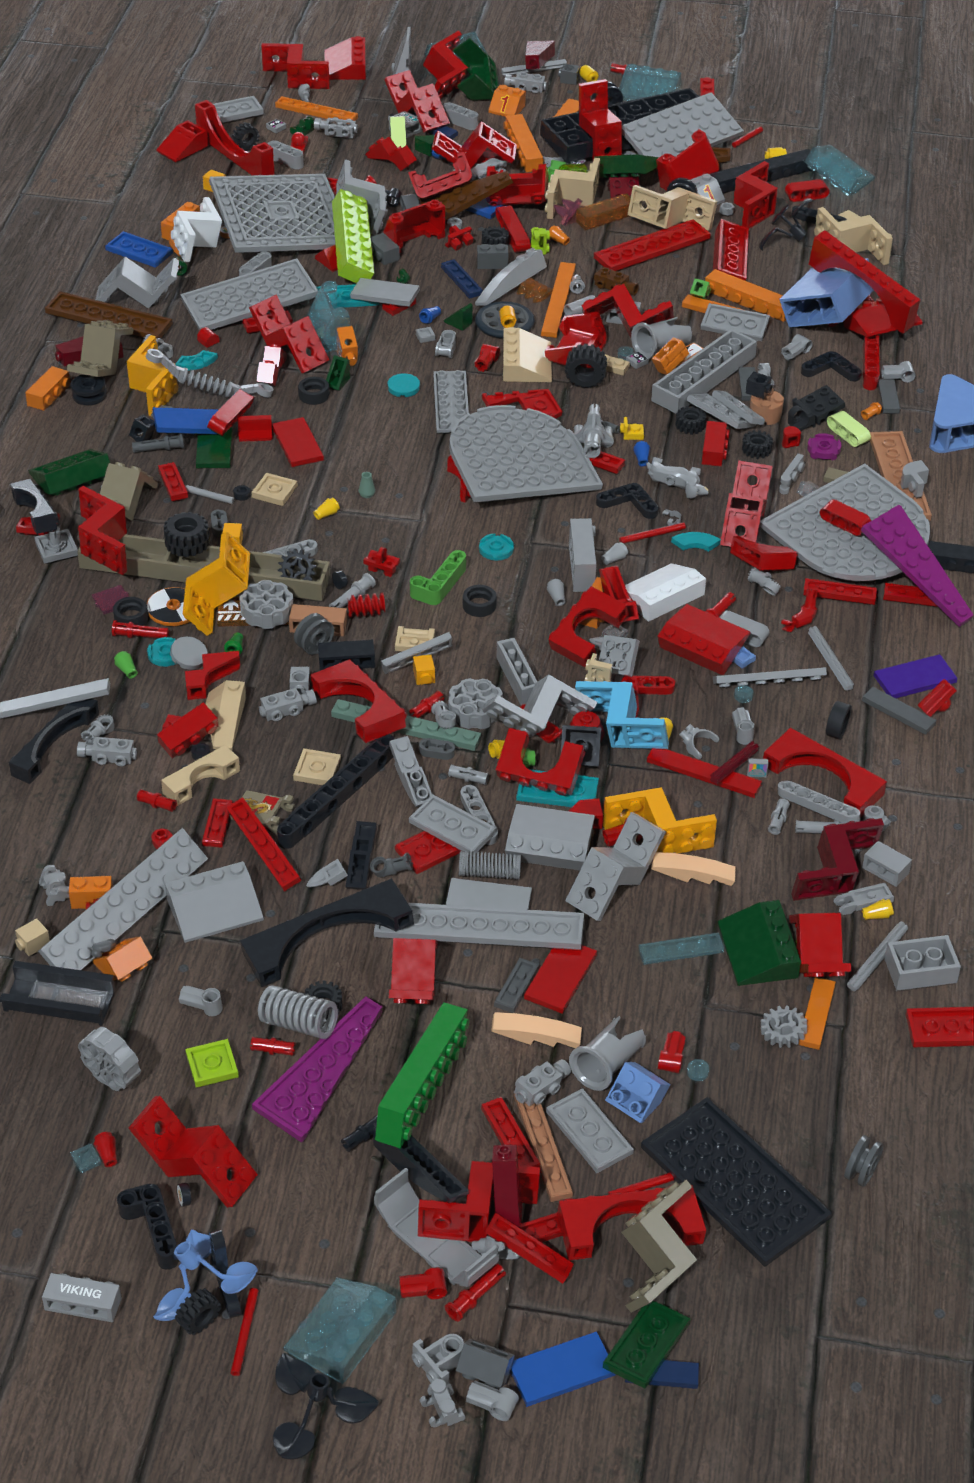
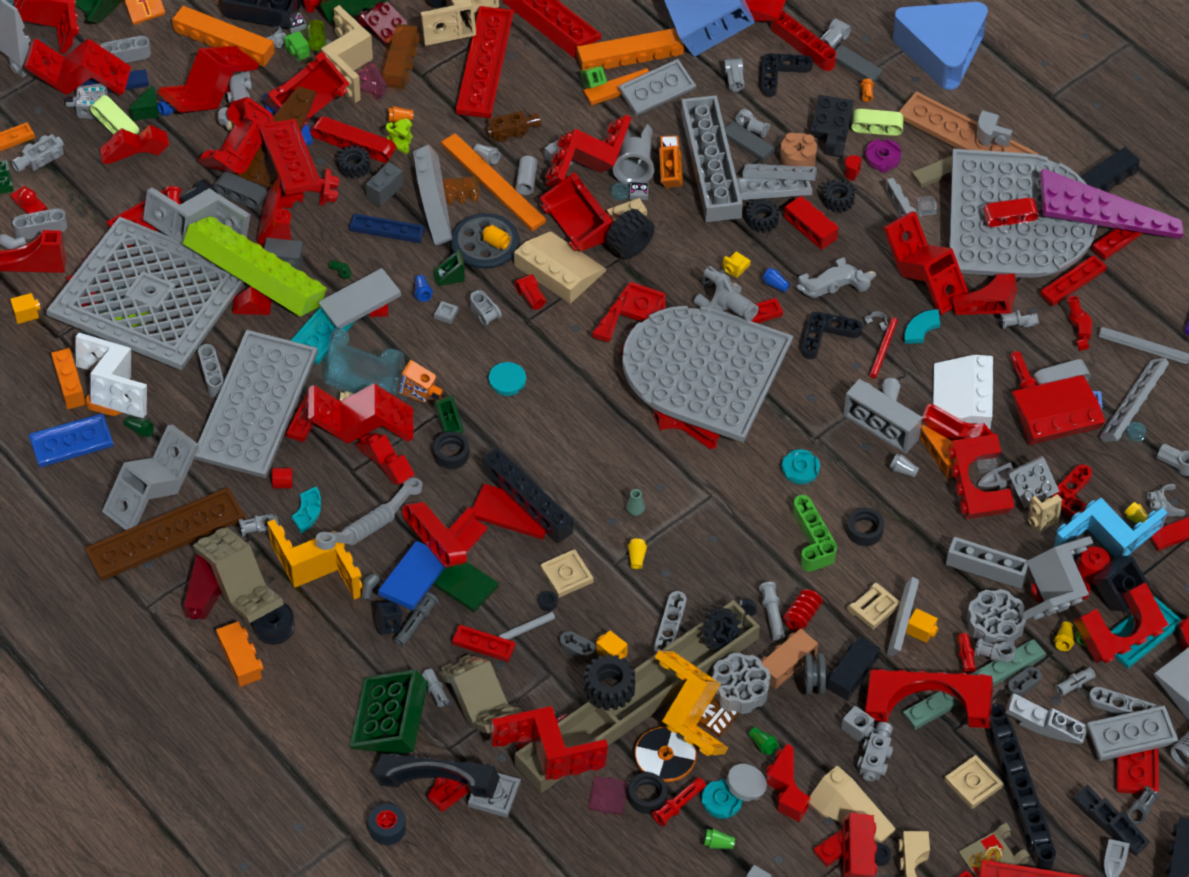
camera: 50 degrees left, 10 degrees up
(310, 434) = (527, 495): none -> black brick
(375, 559) = (761, 561): red hips -> none
(443, 194) = (290, 156): none -> red plate
(450, 398) = (567, 361): light grey plate -> none
(758, 385) = (788, 140): black brick -> none

